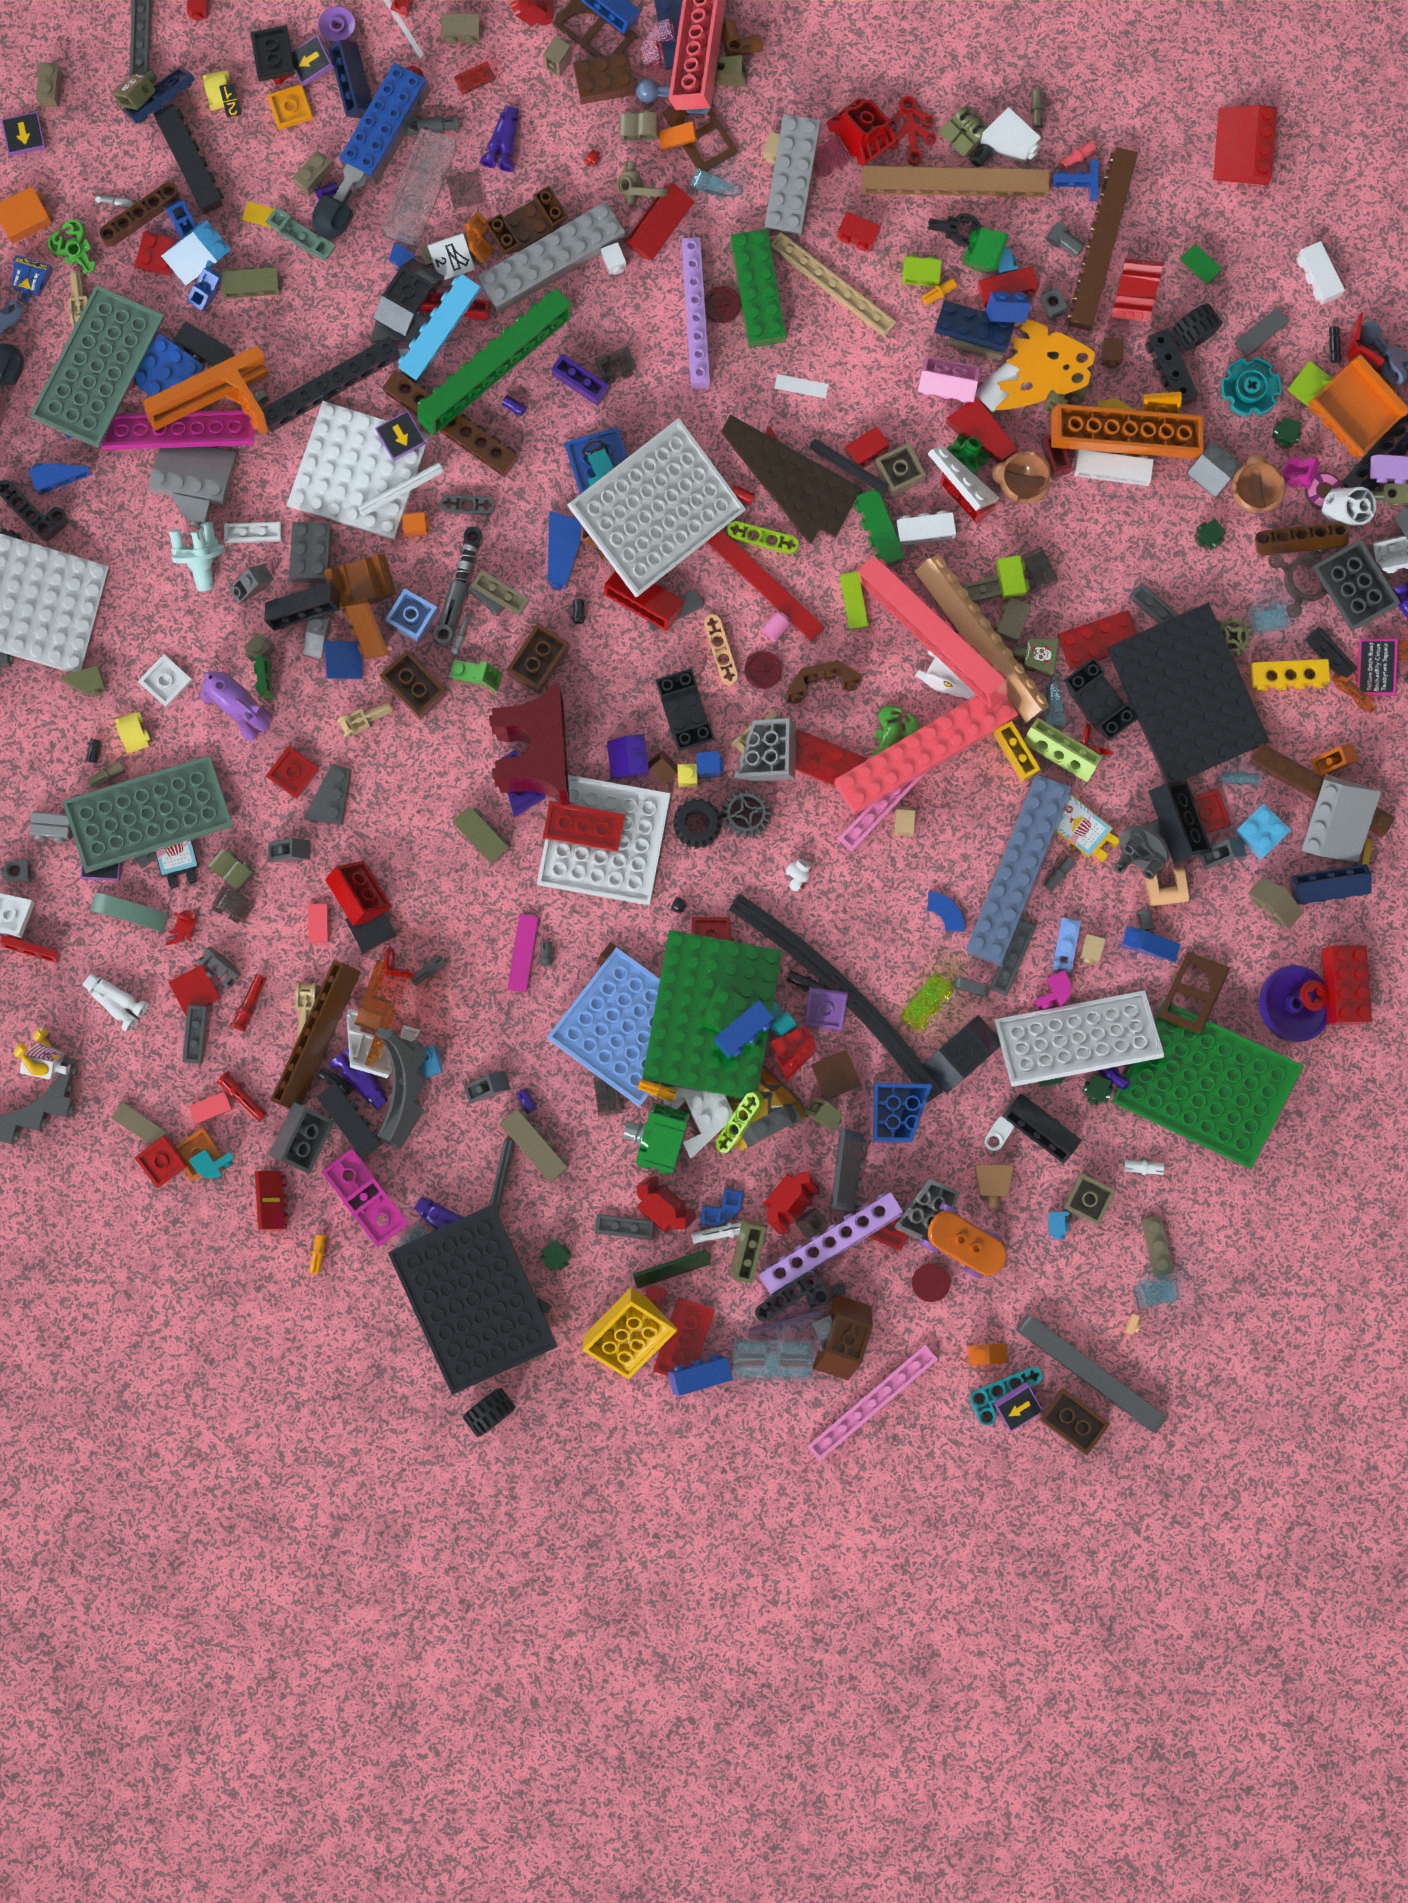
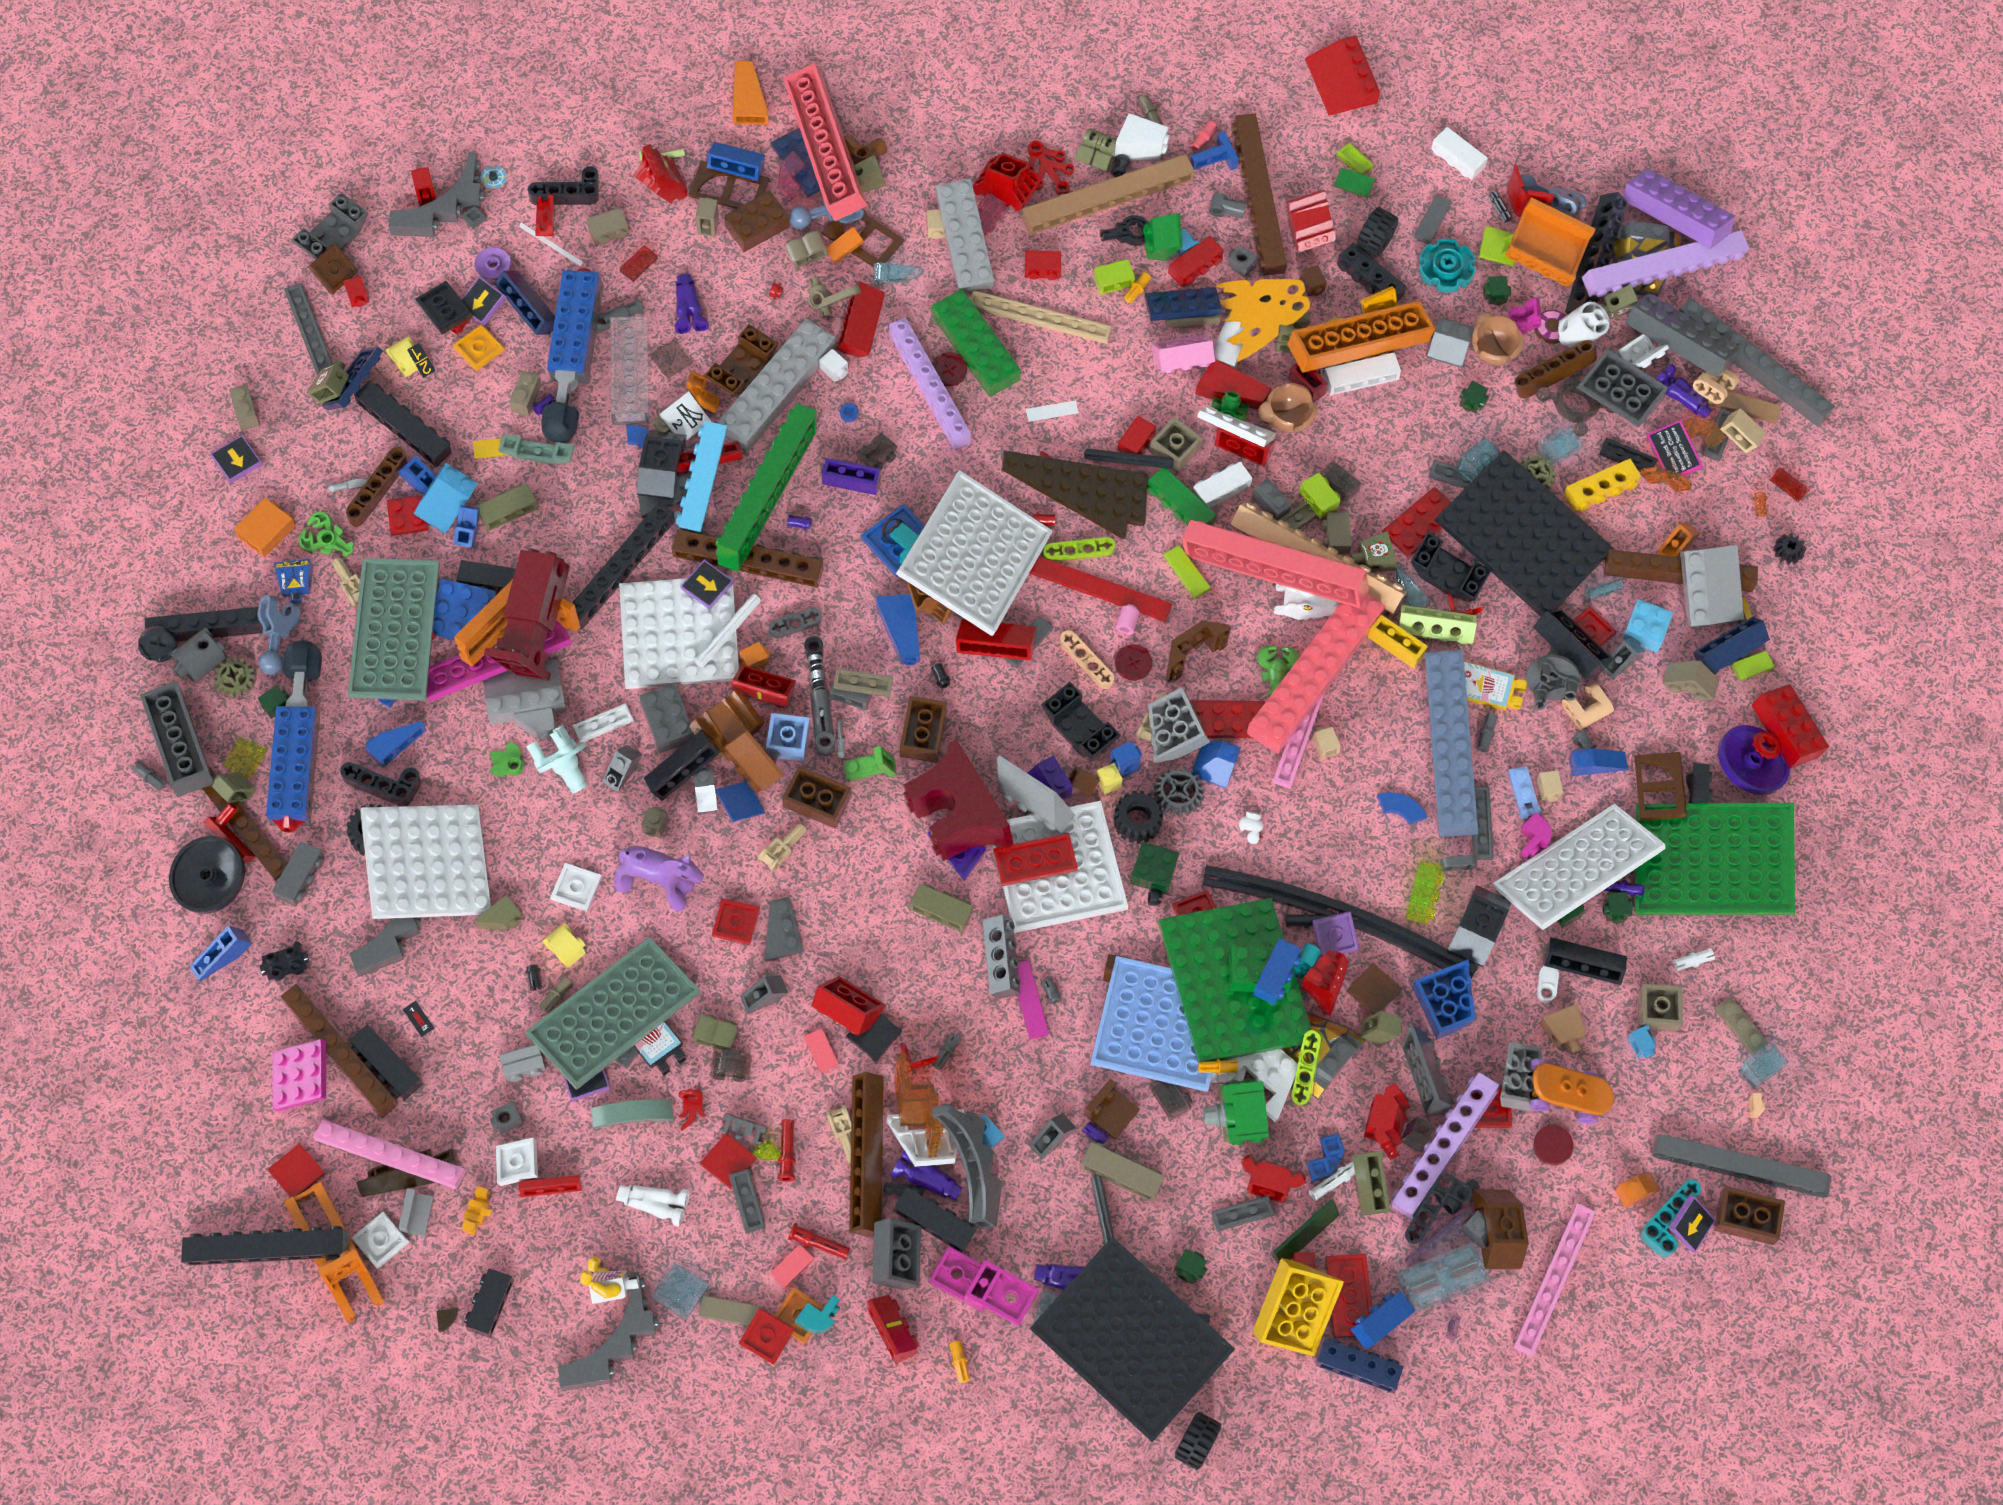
camera: 25 degrees left, 15 degrees down
(104, 1090) = (680, 1291): none -> clear light blue plate
(150, 532) = (505, 759): none -> bright green plate
(219, 407) = (531, 613): none -> dark red brick
(231, 996) = (767, 1151): none -> clear neon green tile
(264, 681) = (667, 835): green plate -> none
(410, 557) = (764, 686): none -> red slope
(513, 904) = (1000, 985): none -> brick
(550, 1086) = (1111, 1110): none -> reddish brown bracket
(606, 768) = (1032, 796): none -> light grey slope
(608, 311) = (849, 412): none -> blue tile
(662, 1405) = (1359, 1365): none -> dark blue brick
(690, 877) = (1154, 868): none -> dark green brick
(760, 1407) = (1453, 1327): none -> clear purple tile
(793, 800) = (1216, 762): none -> blue slope
(965, 562) = (1271, 499): none -> dark grey brick
(1008, 307) = (1205, 275): blue brick -> none
(1181, 600) = (1477, 459): none -> clear light blue slope
(1215, 238) = (1355, 159): none -> lime tile
(1232, 1003) = (1698, 783): none -> black brick
(1344, 910) = (1752, 666): none -> lime tile

